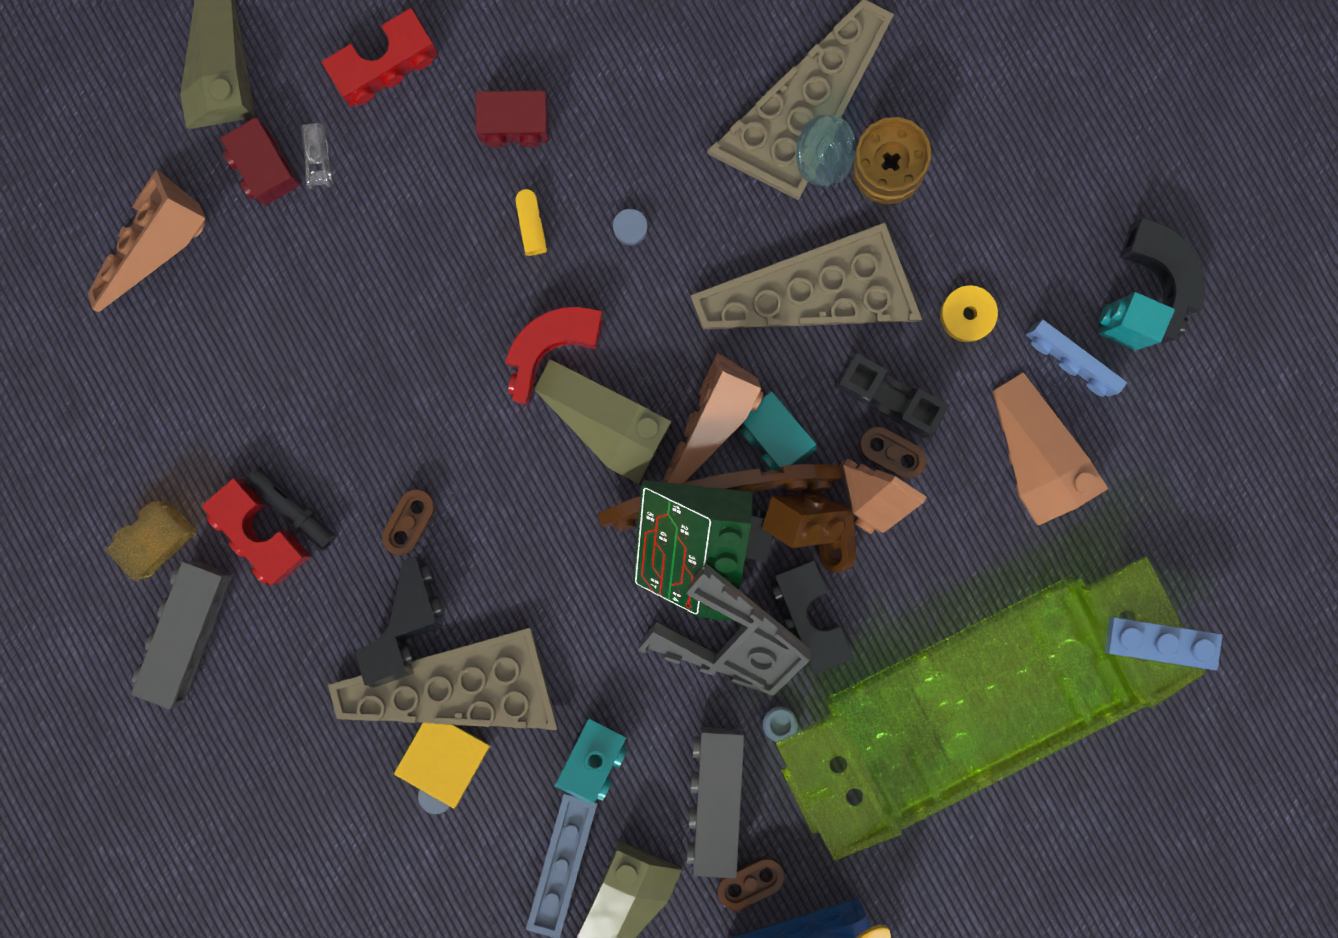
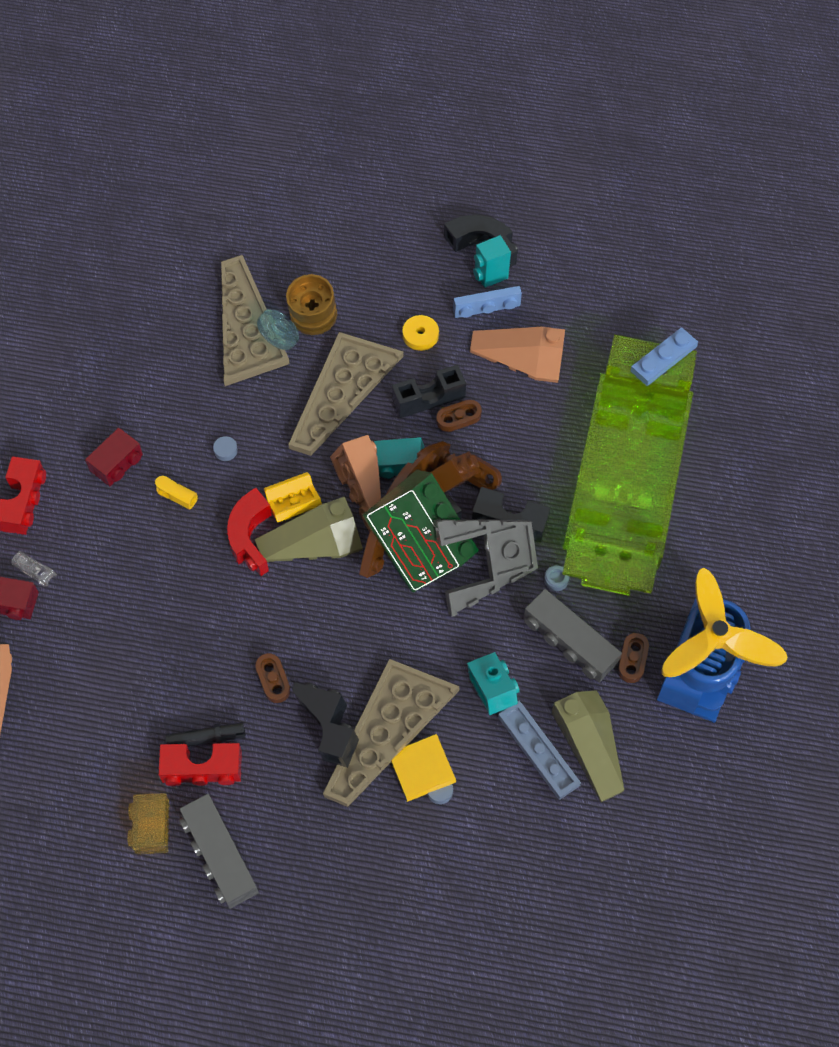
camera: 55 degrees left, 25 degrees down
(629, 359) = (292, 497): none -> yellow bracket
(877, 497) = (473, 425): nougat wedge -> none

